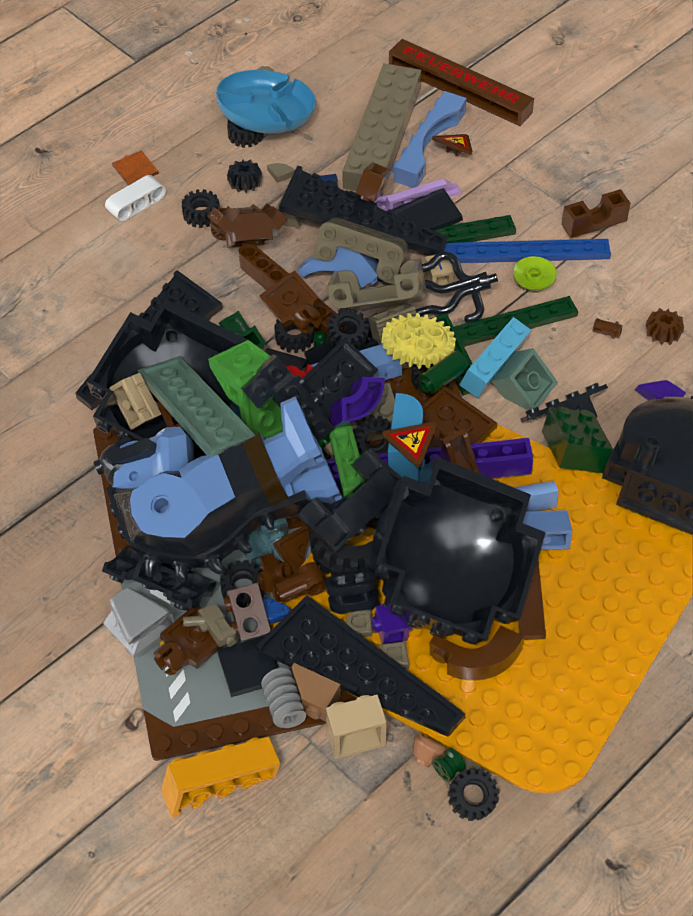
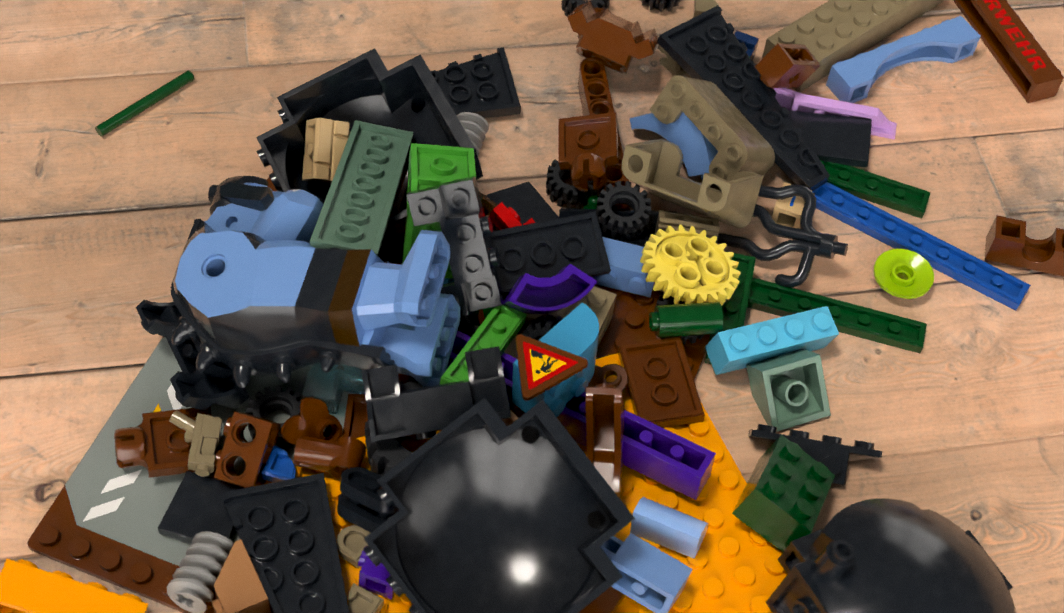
camera: 30 degrees right, 0 degrees up
(136, 621) = (132, 384): light grey piece -> none
(237, 325) = (508, 151): dark green brick -> none
(458, 141) = (933, 81): reddish brown piece -> none
(608, 328) = (944, 389): reddish brown pin -> none
(659, 390) = (950, 503): dark purple slope -> none
(664, 326) = (1017, 428): reddish brown gear -> none

